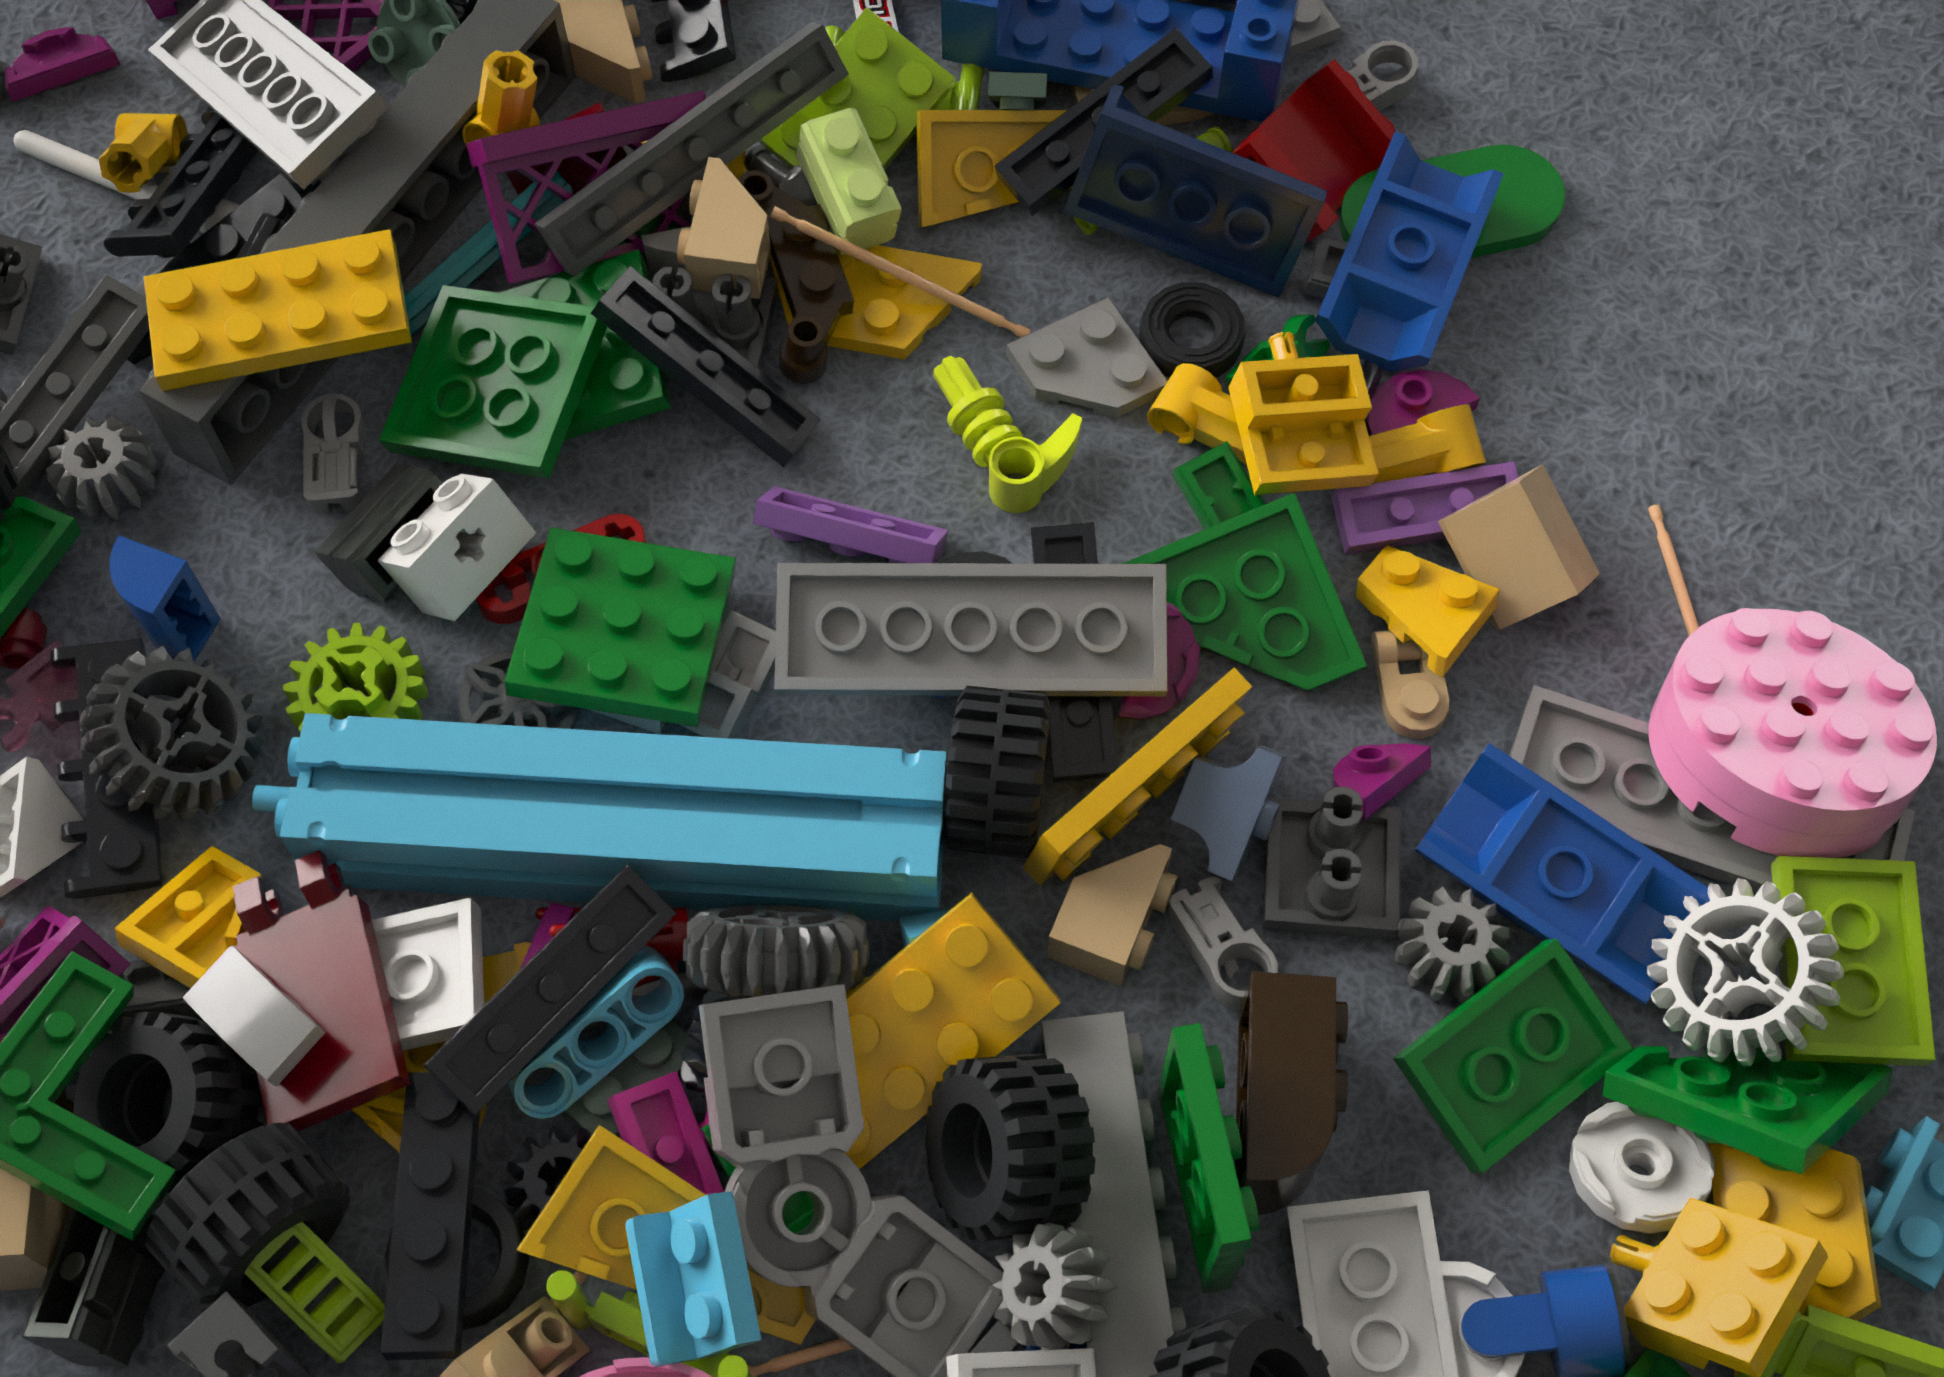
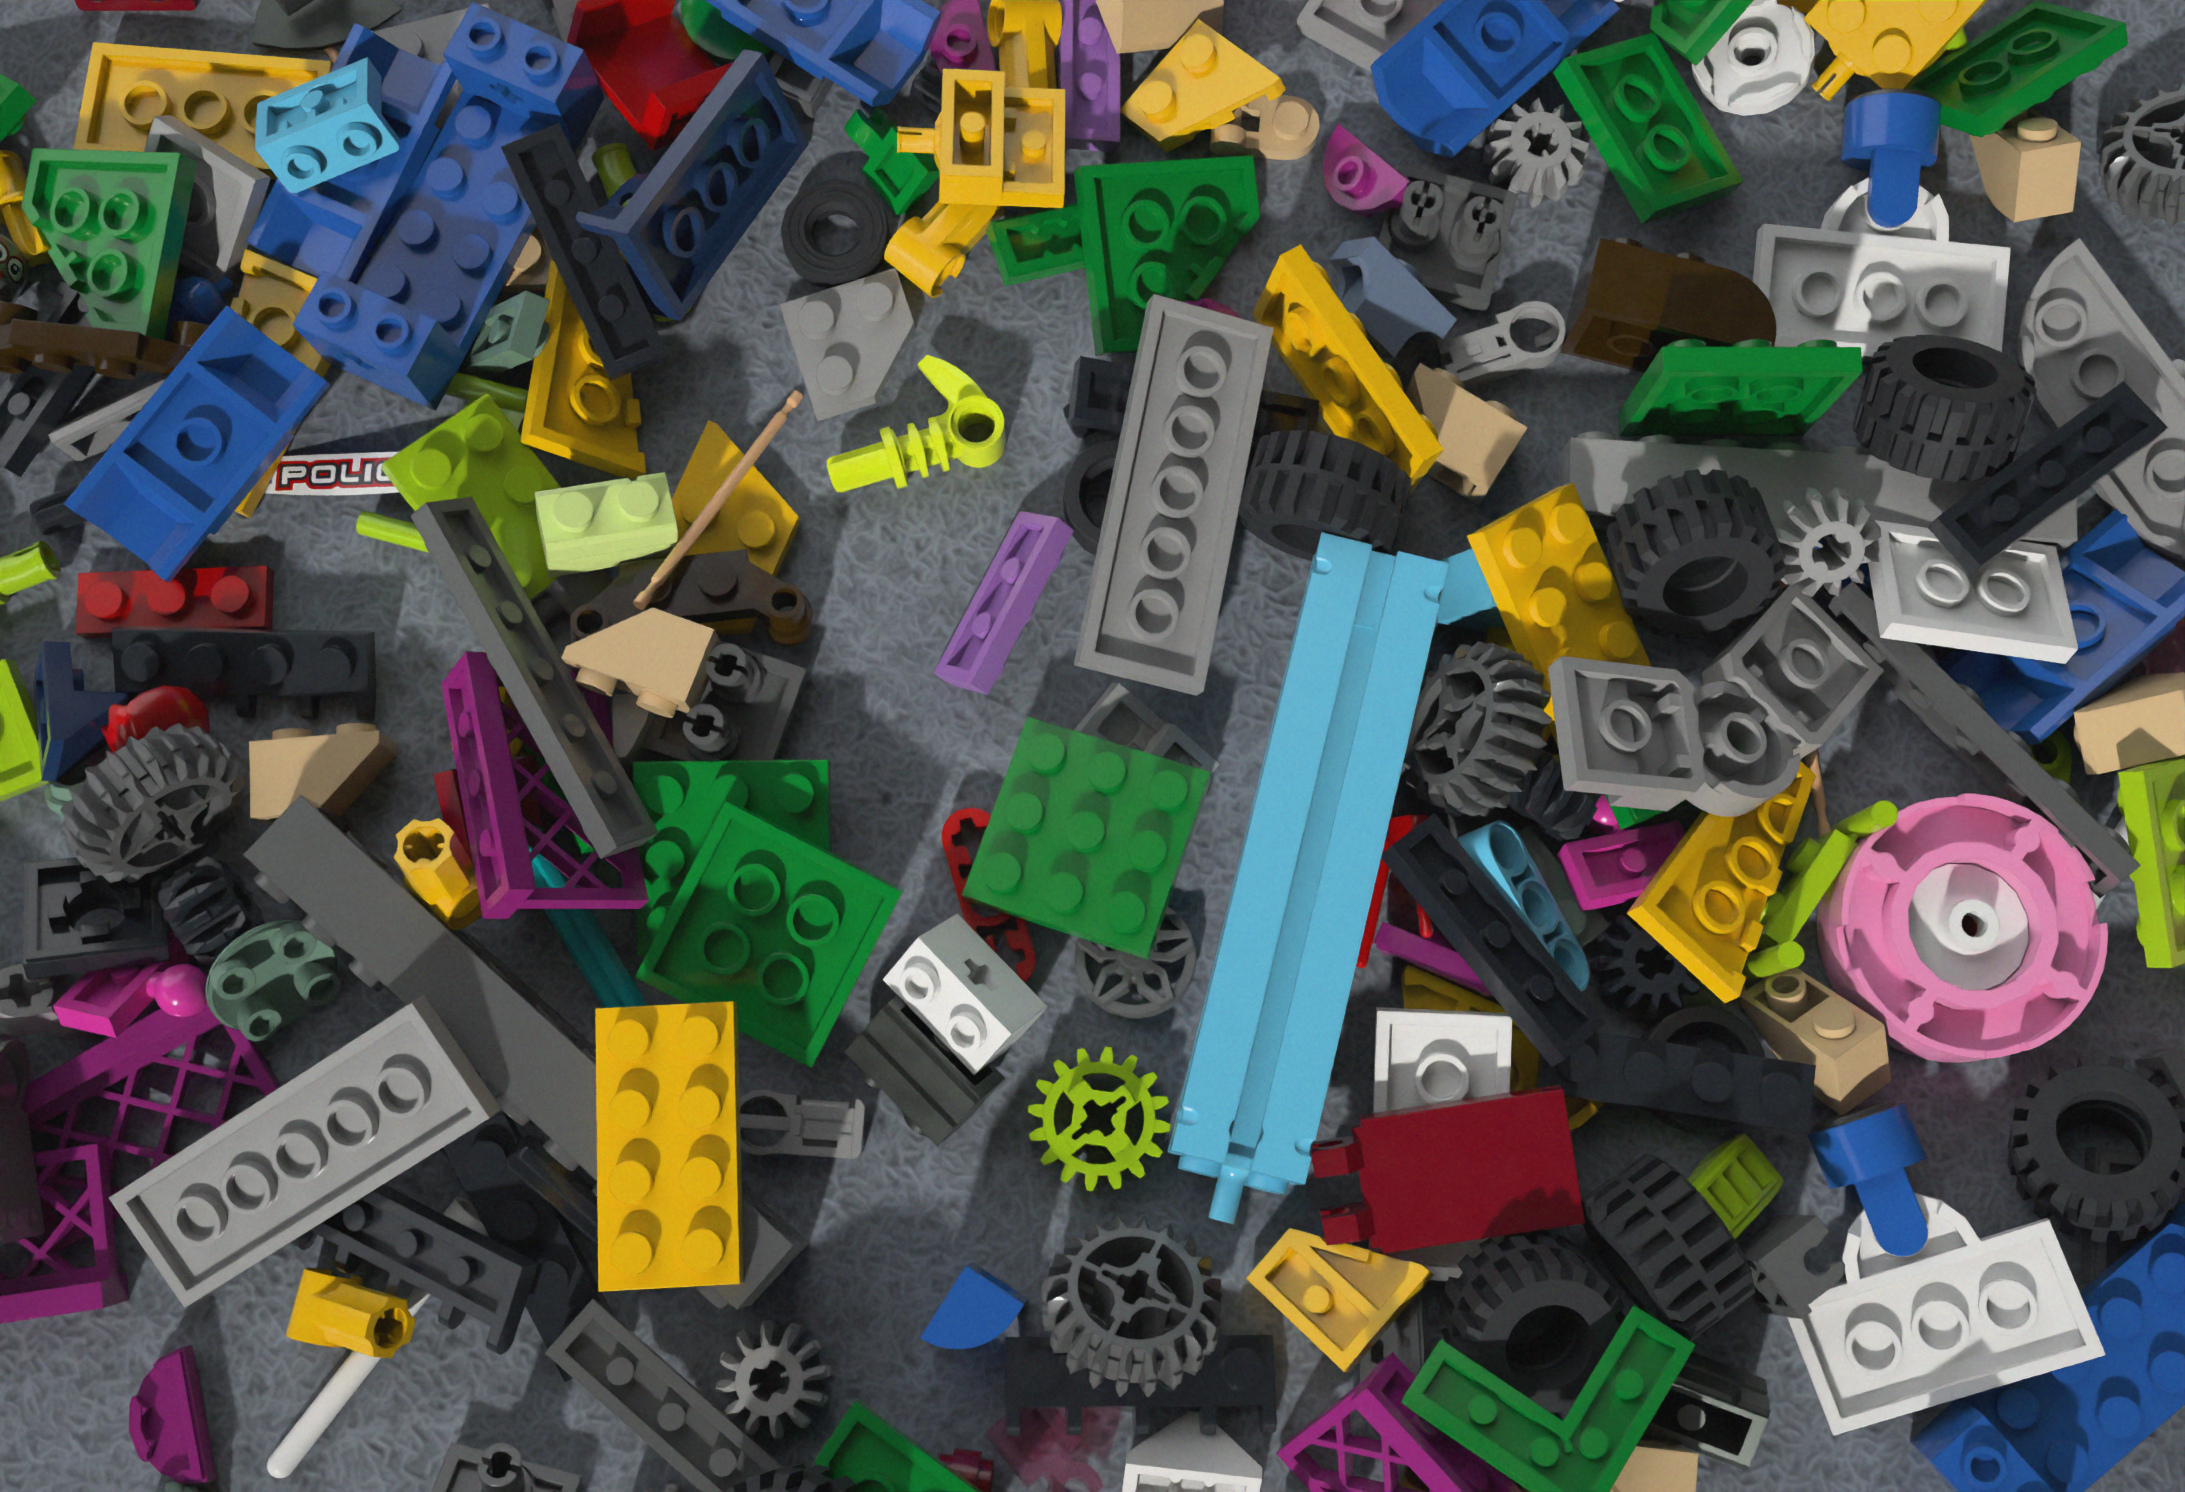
camera: 80 degrees left, 15 degrees up
(253, 1015) = (1479, 1226): light grey slope -> none
(693, 1281) = (1790, 839): medium azure bracket -> none
(705, 366) = (798, 712): black plate -> none

